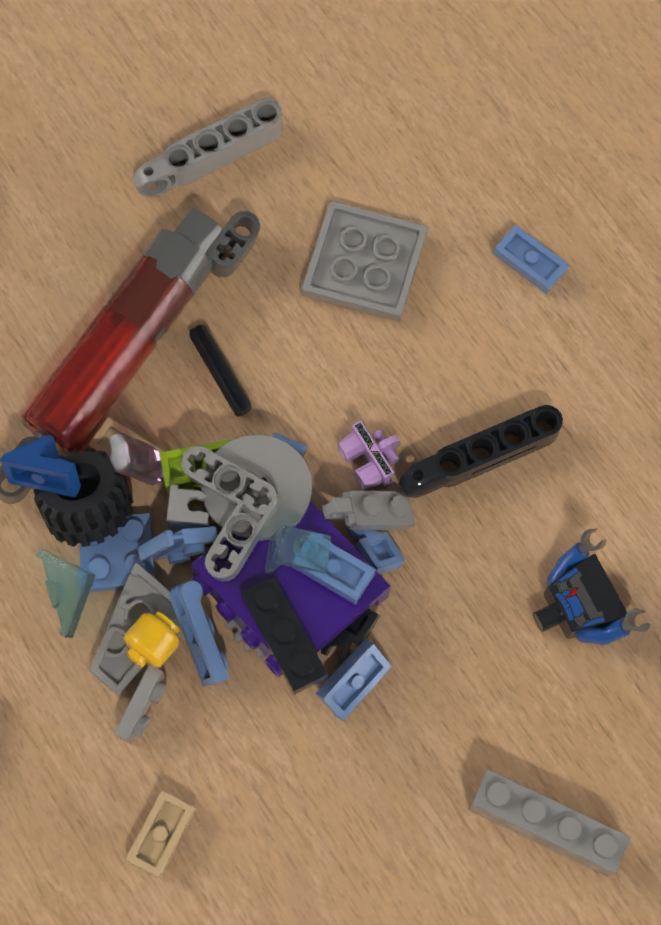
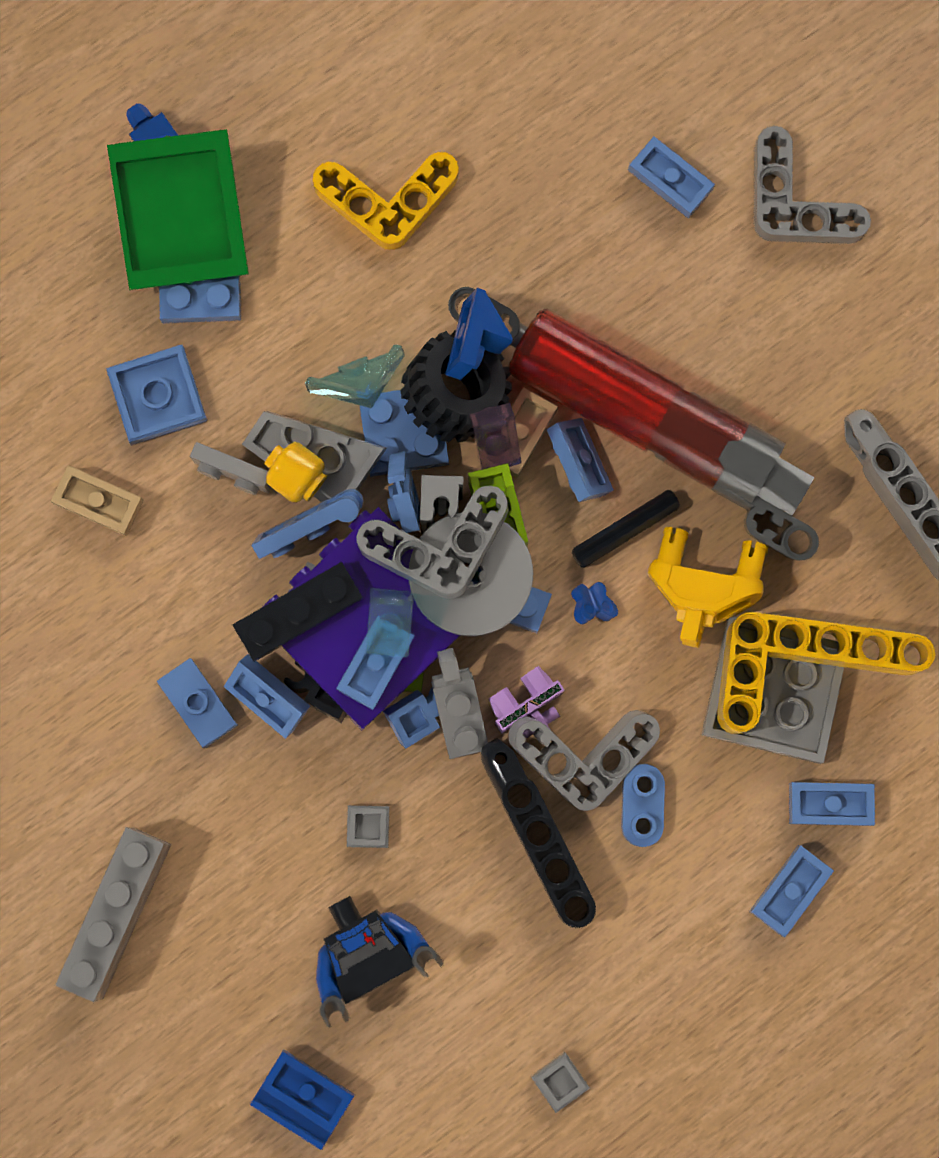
camera: 85 degrees right, 10 degrees up
(62, 777) = (156, 394): none -> medium blue tile
(158, 401) = (579, 459): none -> medium blue plate
(284, 308) = (703, 595): none -> yellow connector
(284, 399) = (592, 603): none -> blue piece
(333, 225) = (808, 649): none -> yellow beam
(356, 745) = (197, 703): none -> medium blue plate
(427, 409) = (591, 769): none -> light grey beam
(458, 371) = (643, 805): none -> medium blue plate
(460, 224) = (831, 804): none -> medium blue plate
(471, 598) = (368, 826): none -> light grey tile

